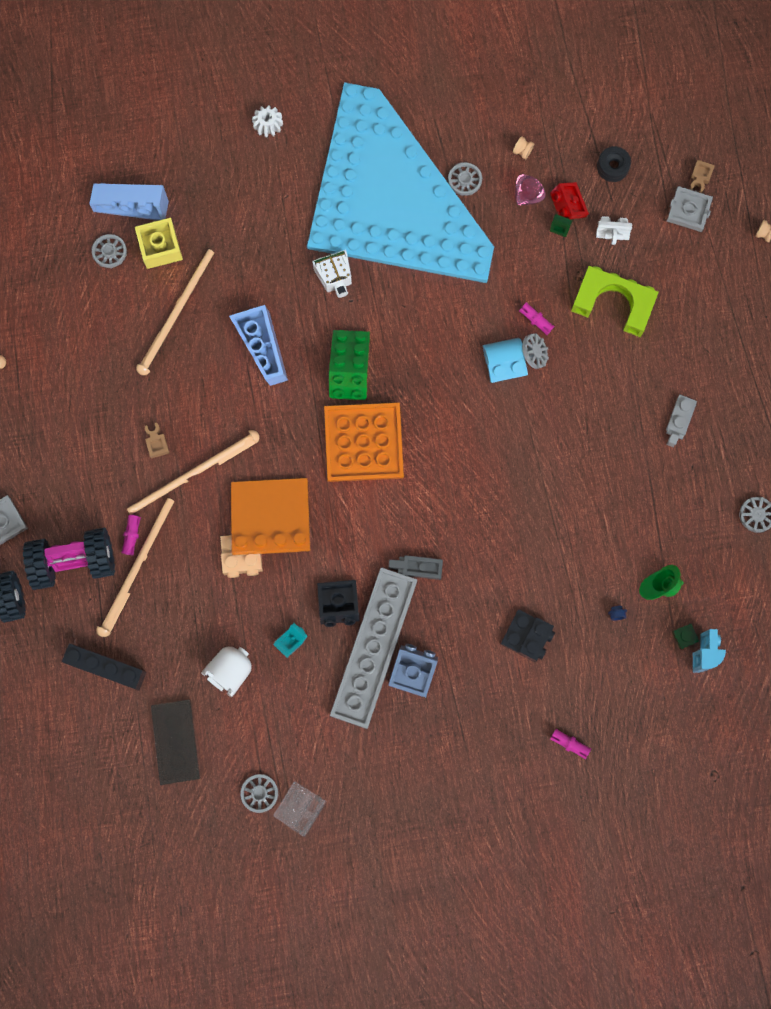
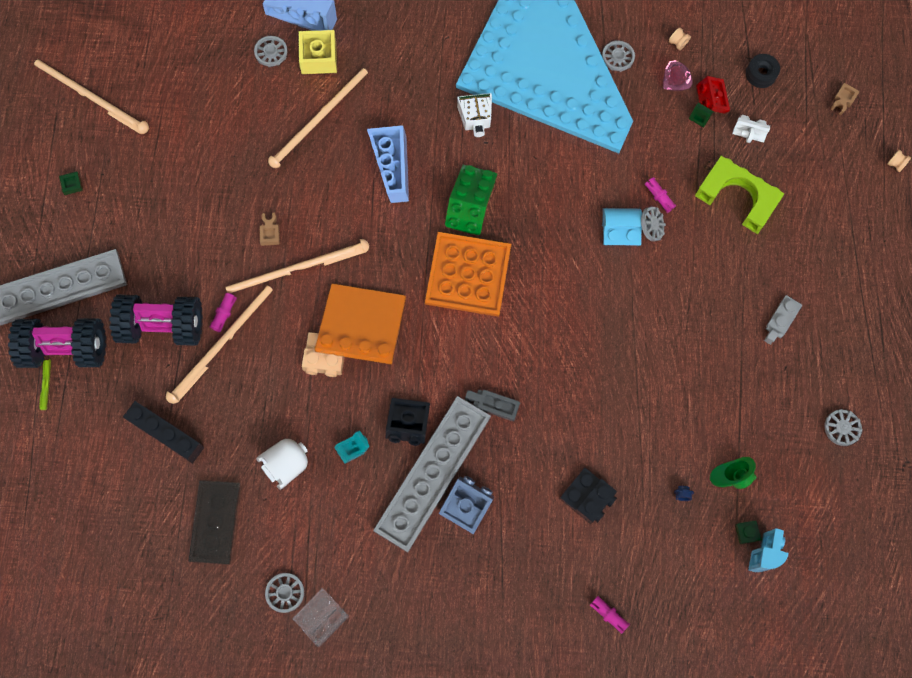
camera: 10 degrees right, 5 degrees down
(689, 209) = (828, 126): light grey plate -> none

